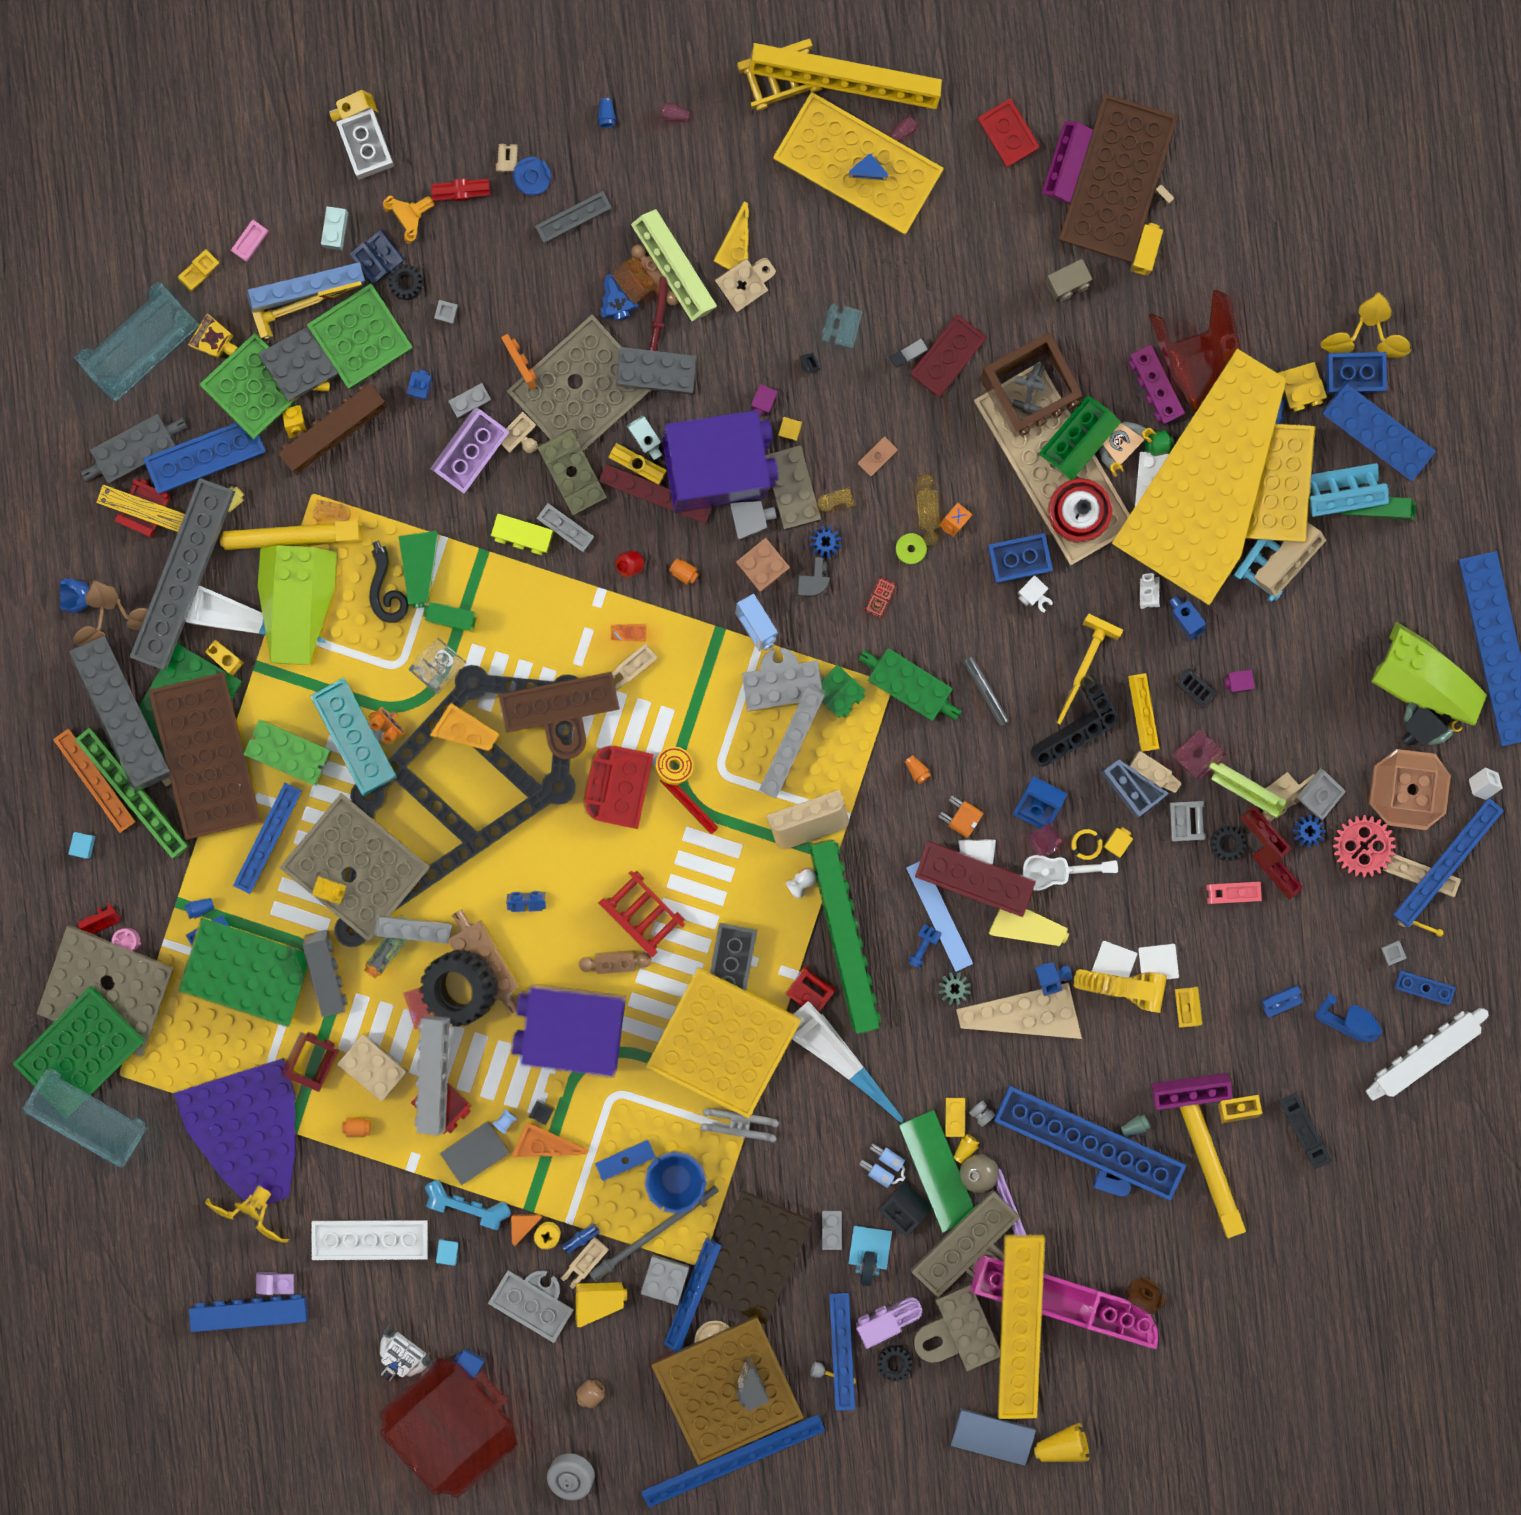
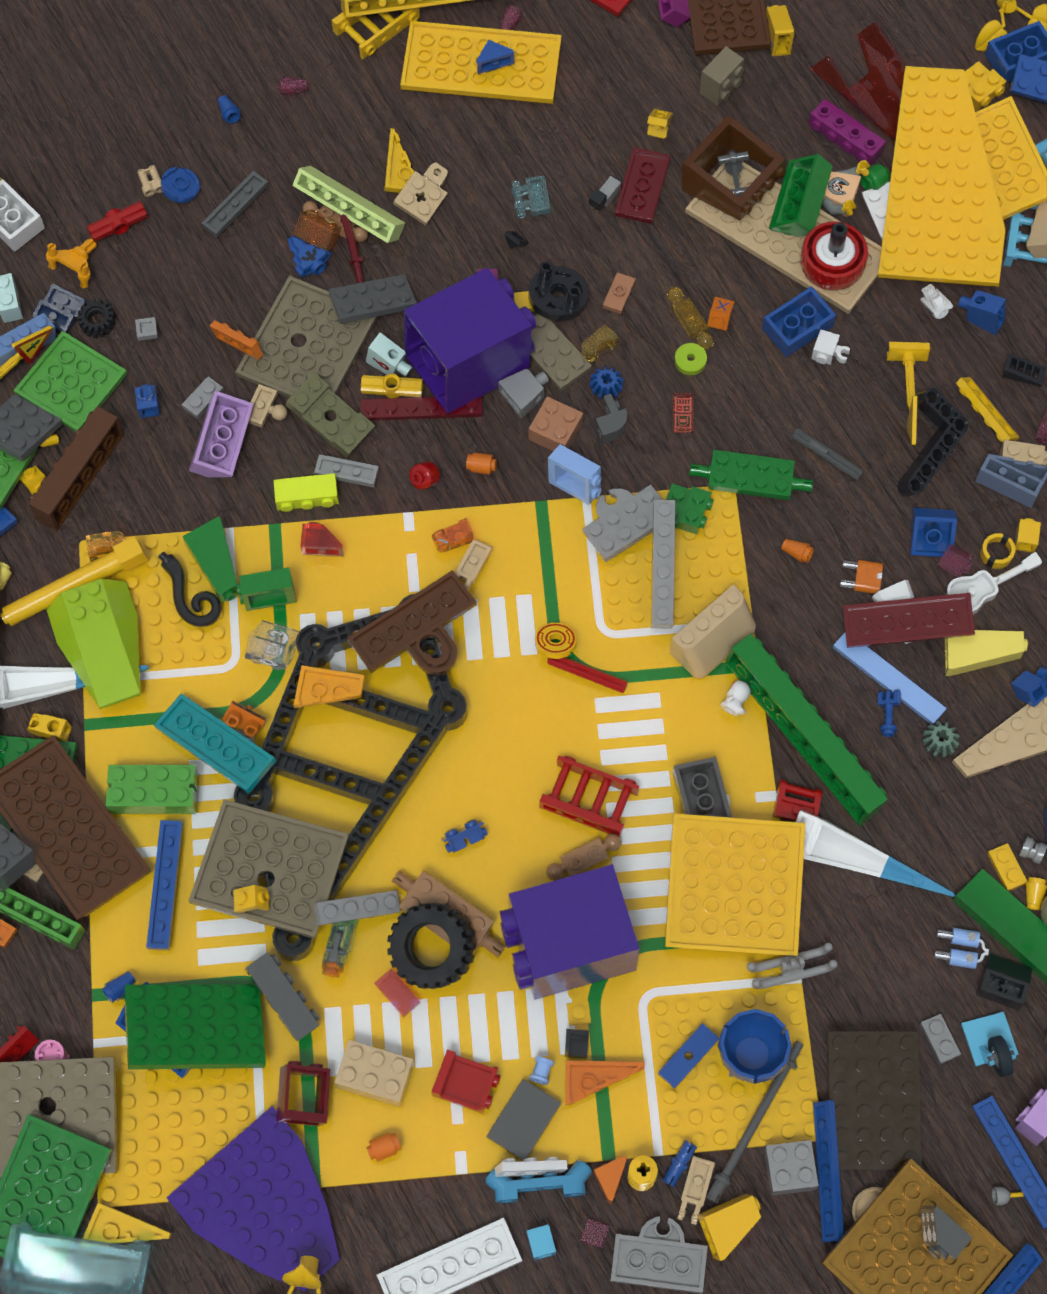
camera: 25 degrees left, 20 degrees down
(125, 1095) = (118, 1227): none -> yellow wing
(432, 1075) = (443, 1045): light grey brick -> none
(463, 1193) = (530, 1166): none -> white plate
(492, 1261) = (594, 1234): none -> clear pink tile
(513, 586) = (319, 541): none -> clear red slope
(617, 785) = (507, 683): red plate -> none
(817, 420) = (562, 280): none -> black piece
(993, 297) = (659, 123): none -> yellow slope

